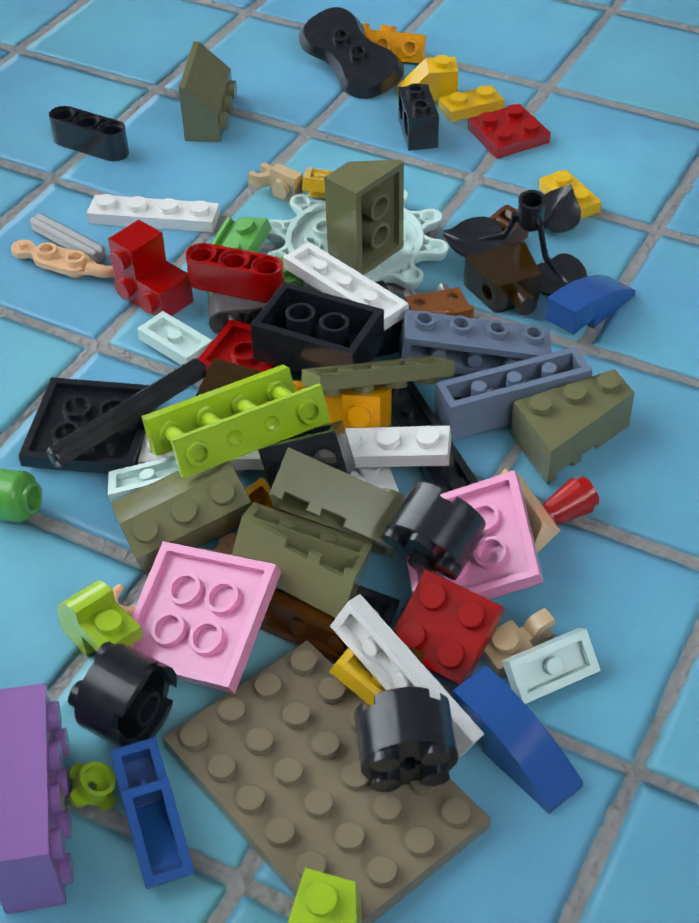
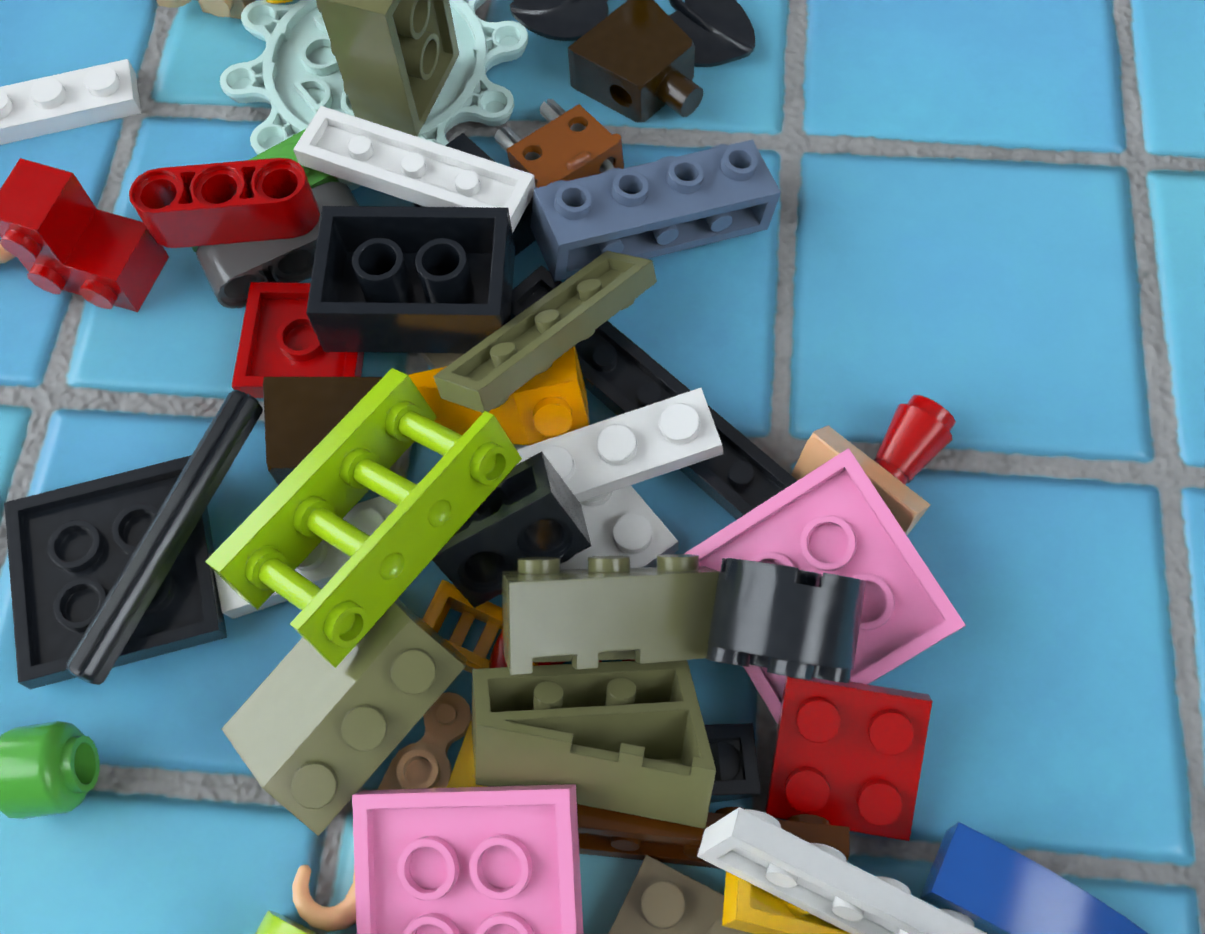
camera: 20 degrees left, 20 degrees up
(132, 478) = (243, 653): light aqua plate -> none
(173, 338) = (175, 349): light aqua plate -> none
(243, 234) = (194, 122): bright green plate -> none
(486, 397) = (749, 276): sand blue brick -> none
(511, 640) = (951, 733): tan plate -> none
(551, 665) = (1024, 755): light aqua plate -> none
(570, 420) = (847, 296): olive wedge -> none
(586, 302) = (773, 66): blue slope -> none

